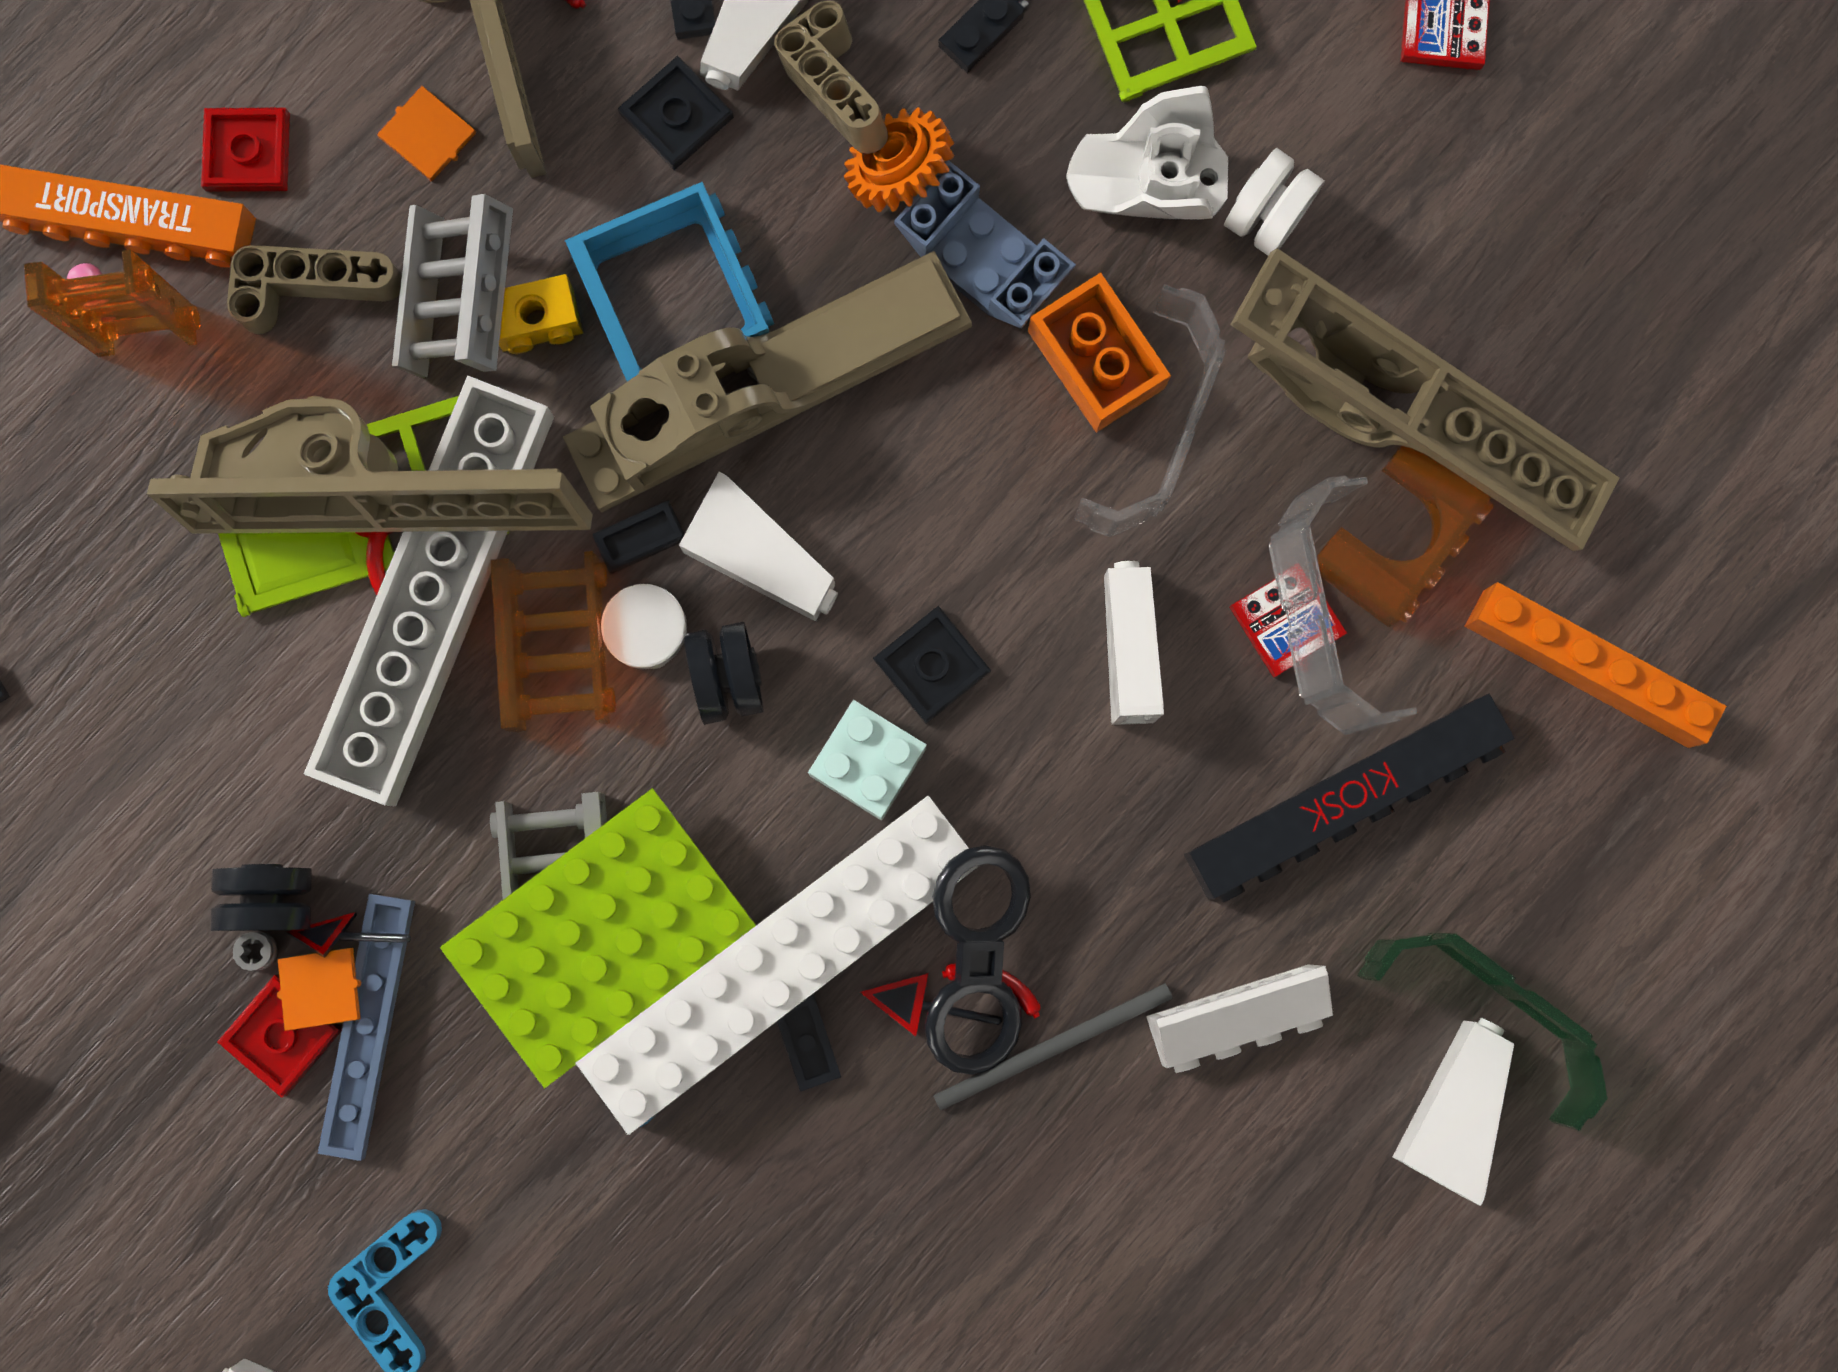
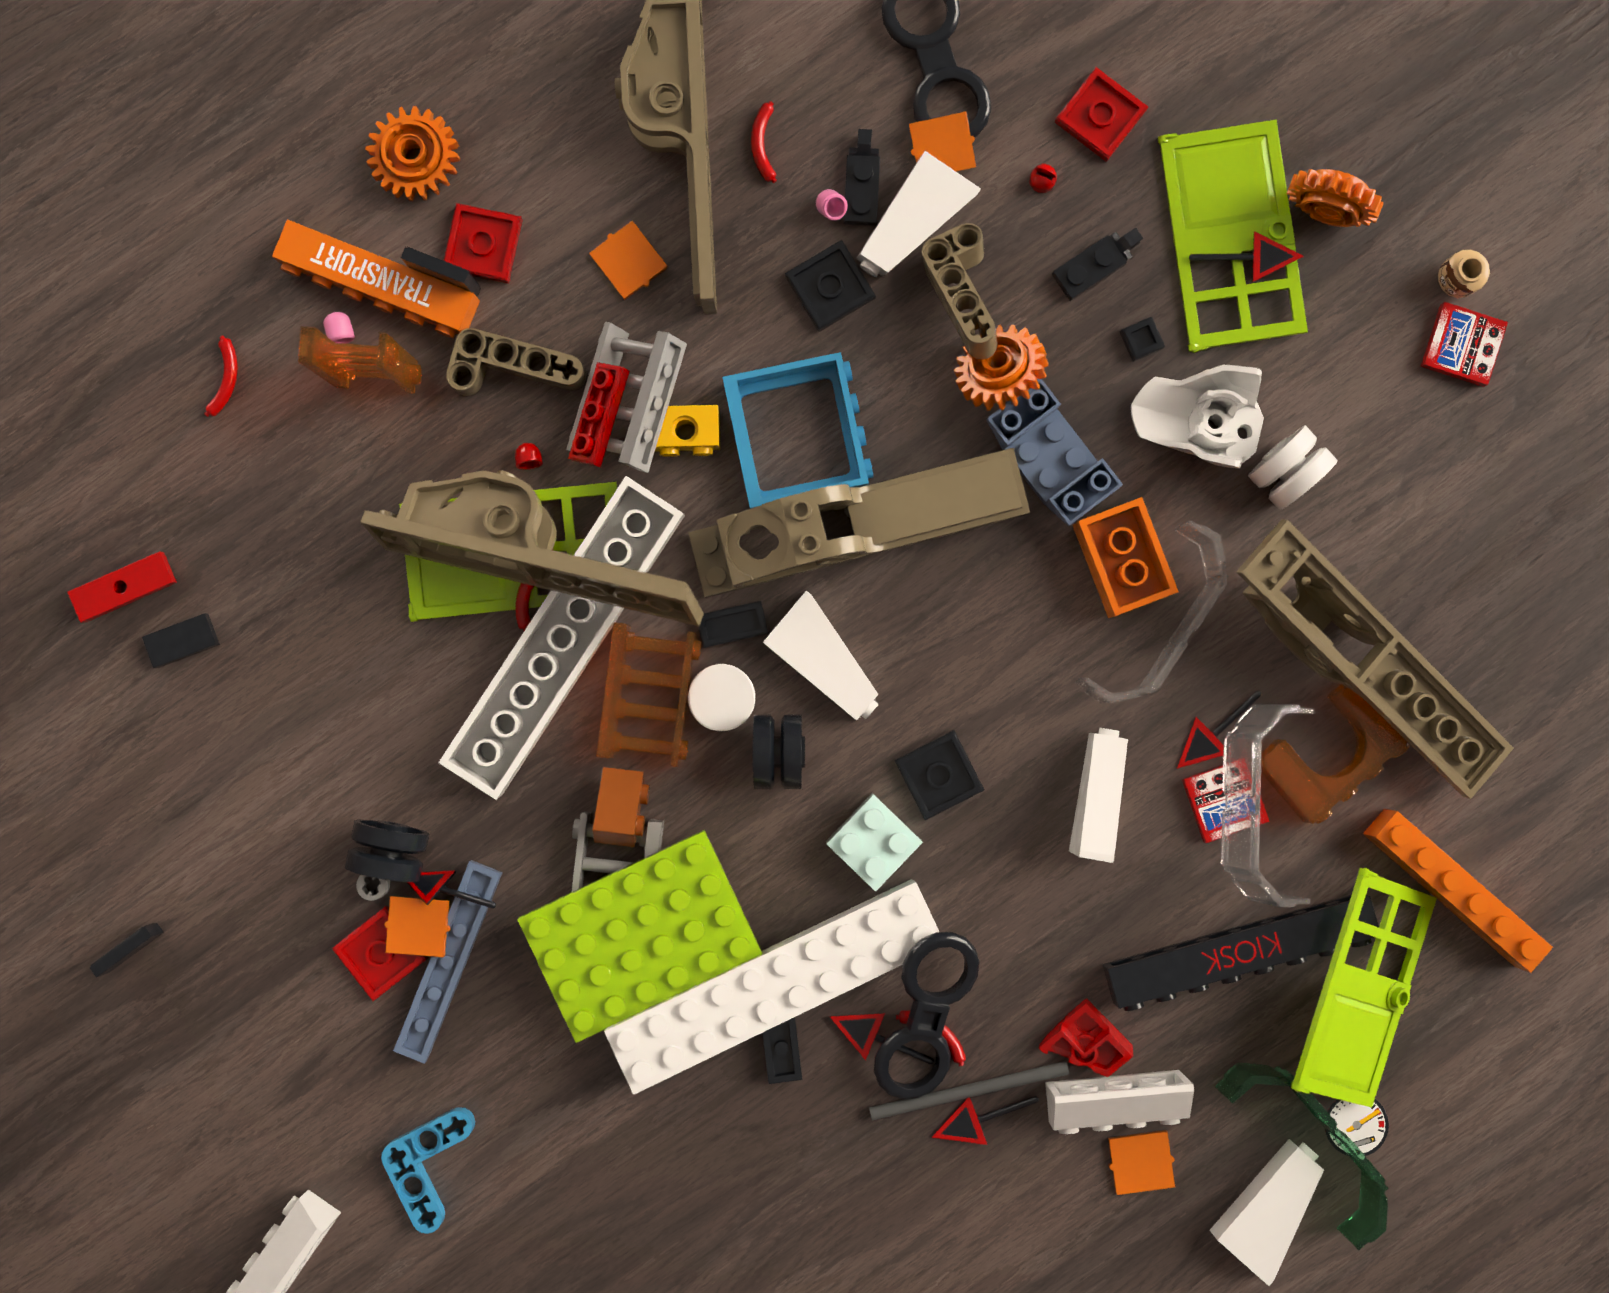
camera: 15 degrees right, 5 degrees up
(126, 40) = (398, 139): none -> orange gear
(195, 182) = (440, 270): none -> black tile
(349, 387) = (528, 456): none -> red hinge
(422, 314) = (599, 414): none -> red tile
(543, 784) = (619, 807): none -> dark orange brick
(656, 16) = (831, 204): none -> bright pink piece
(1059, 1092) = (965, 1125): none -> piece
(1062, 97) = (1142, 339): none -> black tile
(1187, 950) = (1089, 1040): none -> red slope
(1246, 559) = (1203, 744): none -> piece
(1288, 1090) = (1141, 1162): none -> orange piece
(1506, 832) = (1359, 1006): none -> lime door
(1550, 975) = (1362, 1124): none -> white sticker

